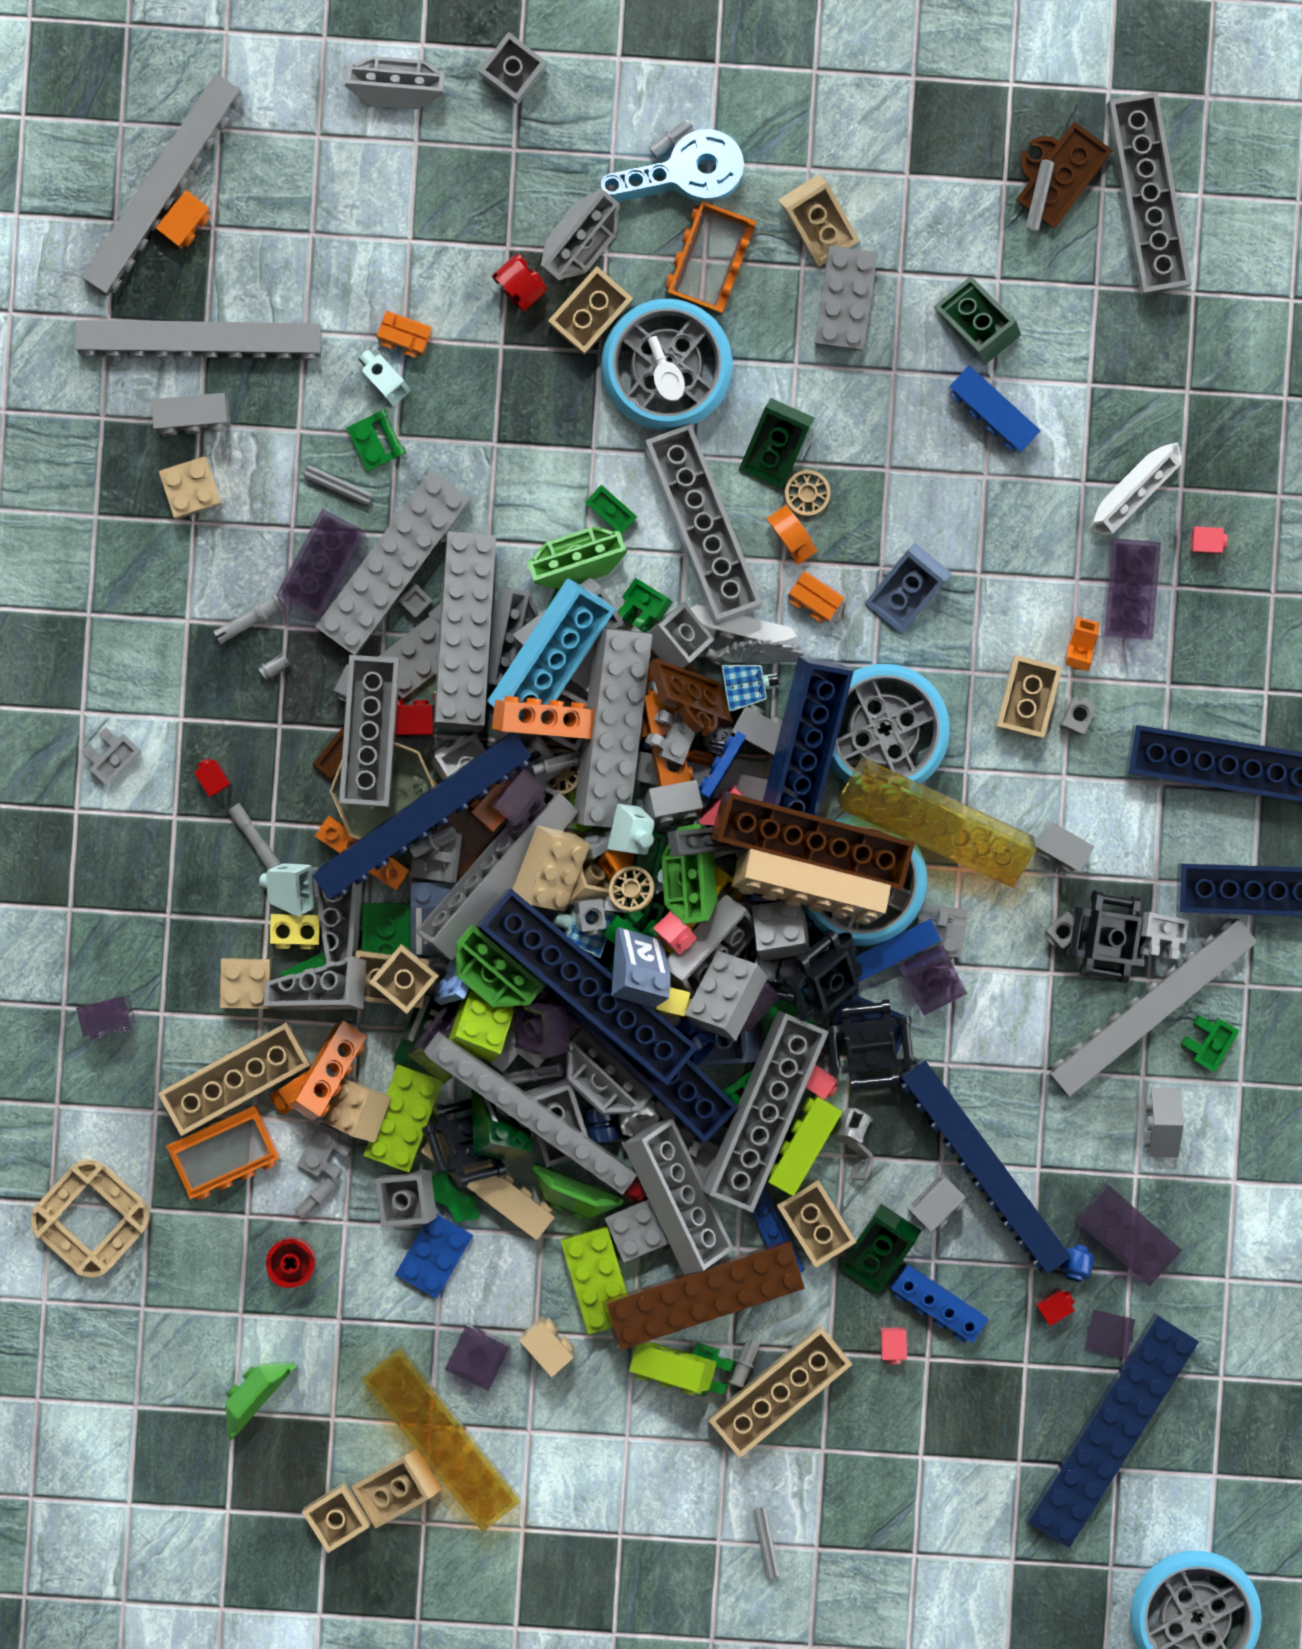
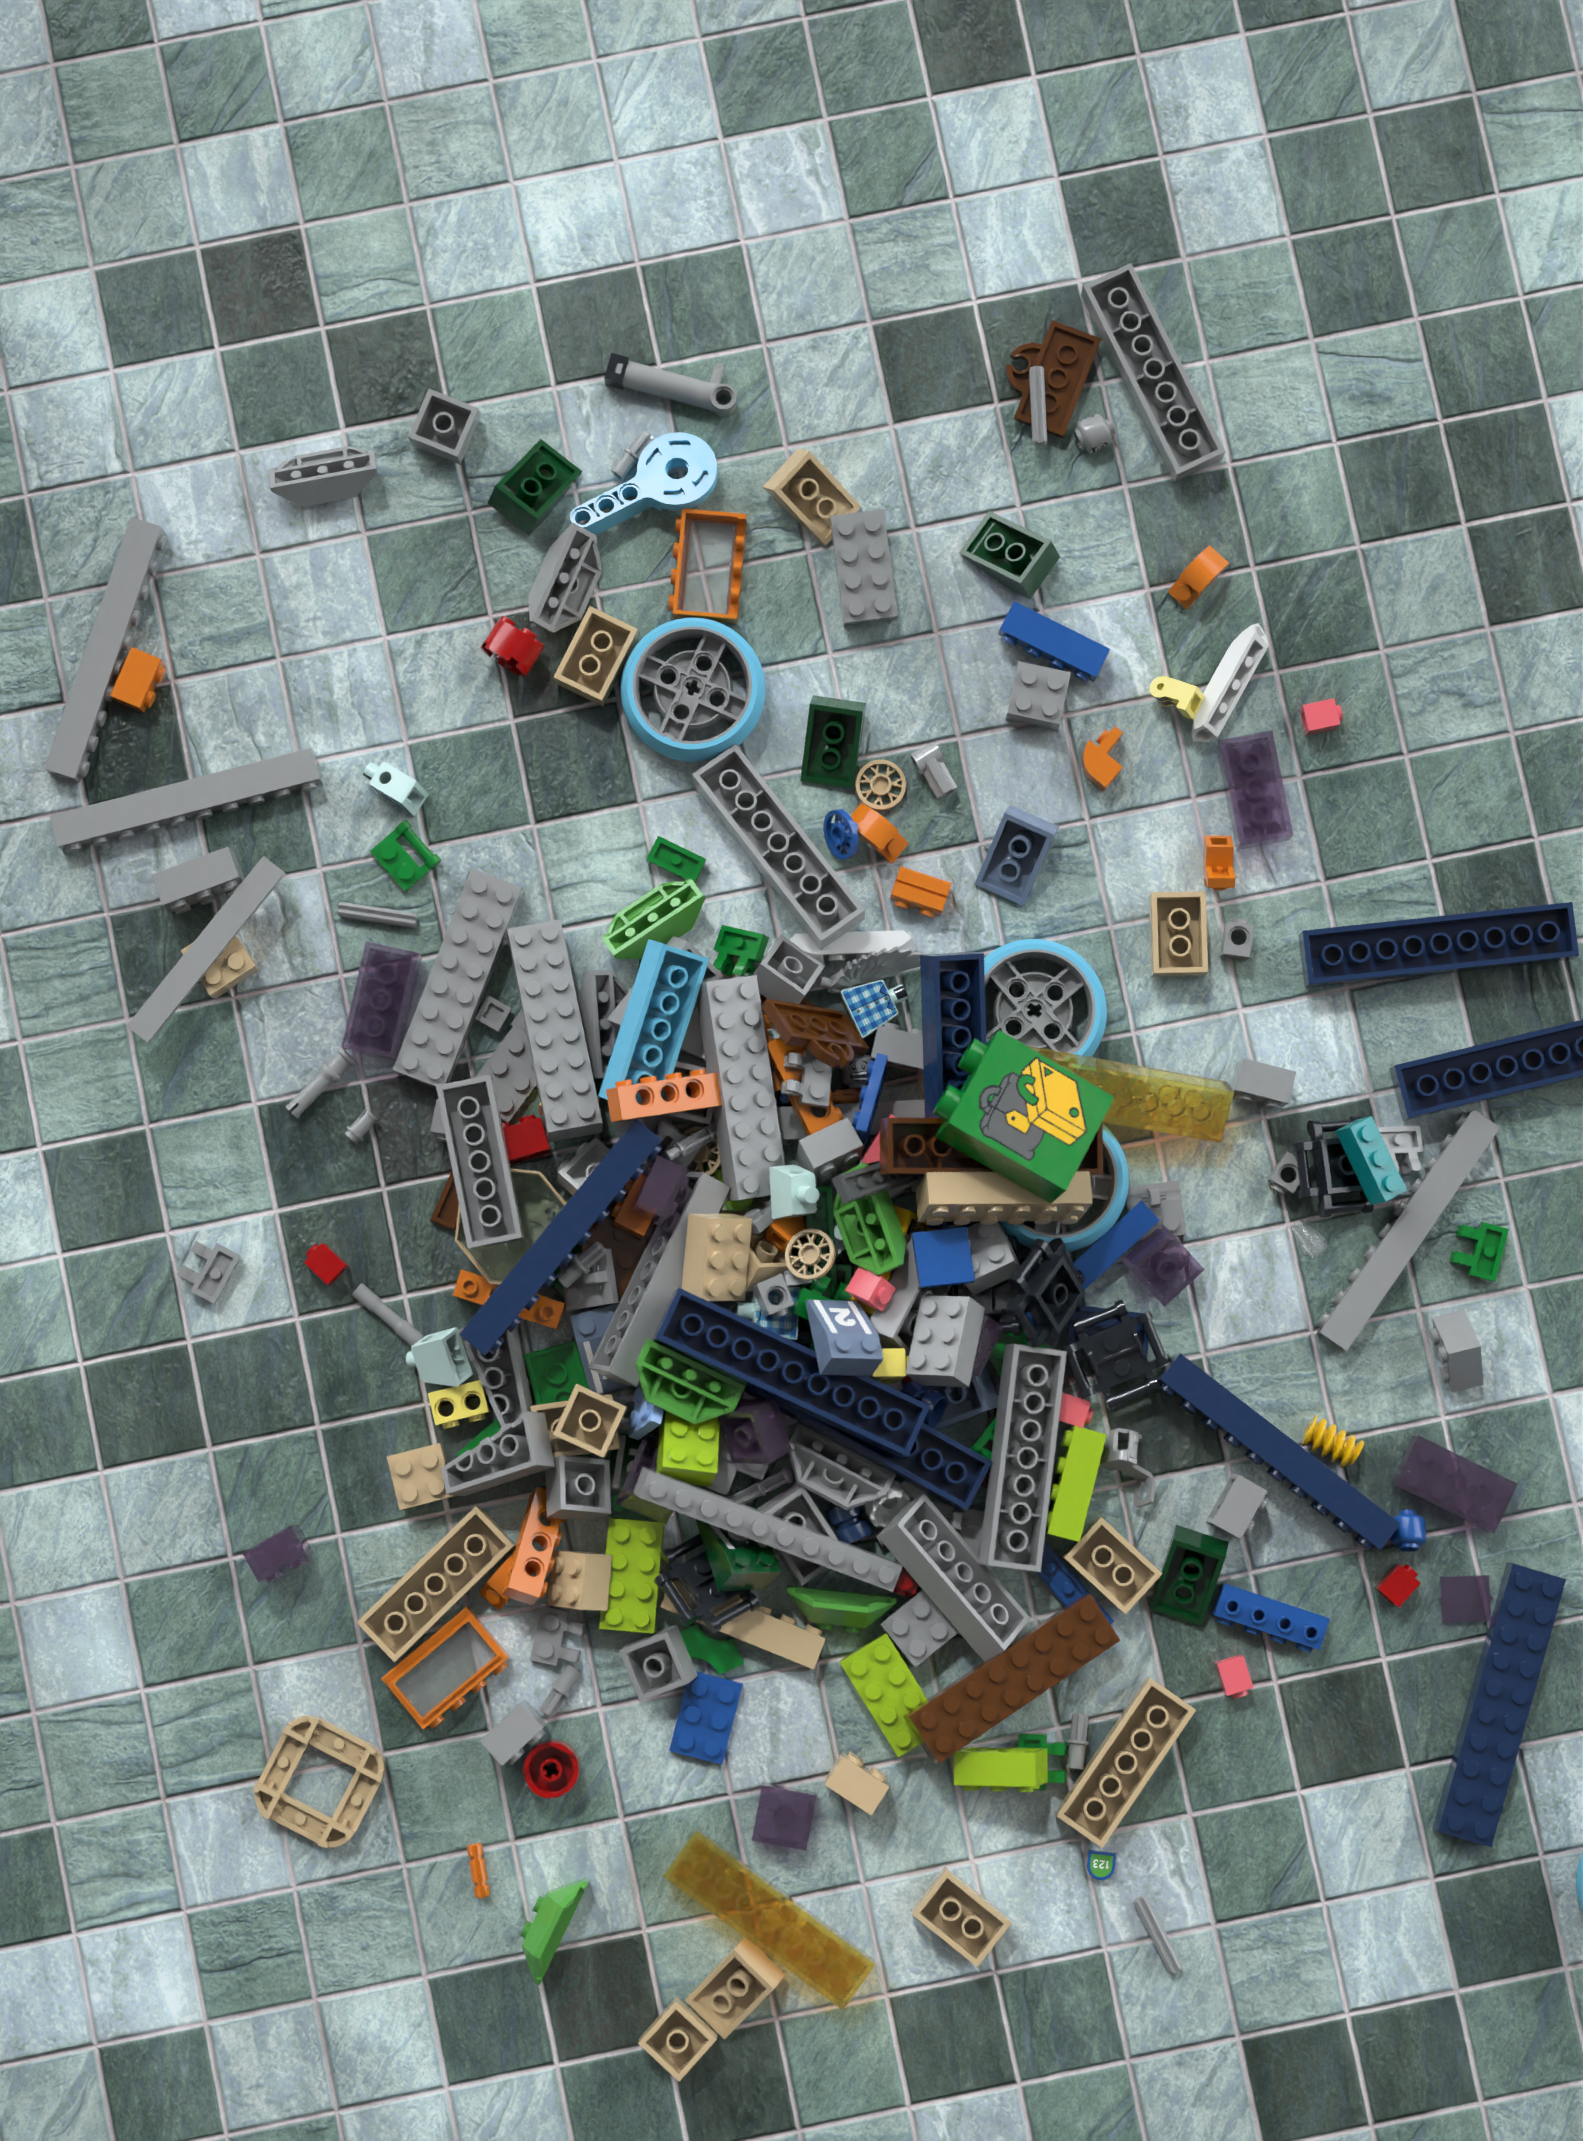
camera: 15 degrees left, 5 degrees down
(181, 477) = (206, 949): none -> light grey tile
(205, 1329) = (478, 1870): none -> orange axle
(267, 1223) = (513, 1732): none -> light grey brick
(378, 1032) = (578, 1489): none -> light grey brick
(404, 334) = (404, 735): orange brick -> none
(577, 143) = (534, 487): none -> dark green slope
(604, 1482) = (961, 1916): none -> tan brick
(667, 376) = (696, 698): white piece -> none
(720, 85) = (672, 386): none -> light grey piece
(735, 1470) = (1101, 1864): none -> tile
(744, 923) = (942, 1257): none -> blue tile
(760, 527) = (841, 834): none -> blue wheel
(845, 822) = (1021, 1115): none -> green brick
(856, 488) = (931, 764): none -> light grey piece
(966, 453) = (1038, 695): none -> light grey brick
(1001, 528) = (1097, 763): none -> orange brick
(1033, 1170) = (1331, 1442): none -> yellow piece
(1065, 991) = (1310, 1240): none -> clear cone
(1082, 233) = (1094, 433): none -> light grey head
(1084, 483) = (1177, 693): none -> light yellow leg
(1136, 387) = (1198, 576): none -> orange brick
(1137, 940) = (1371, 1160): none -> teal brick

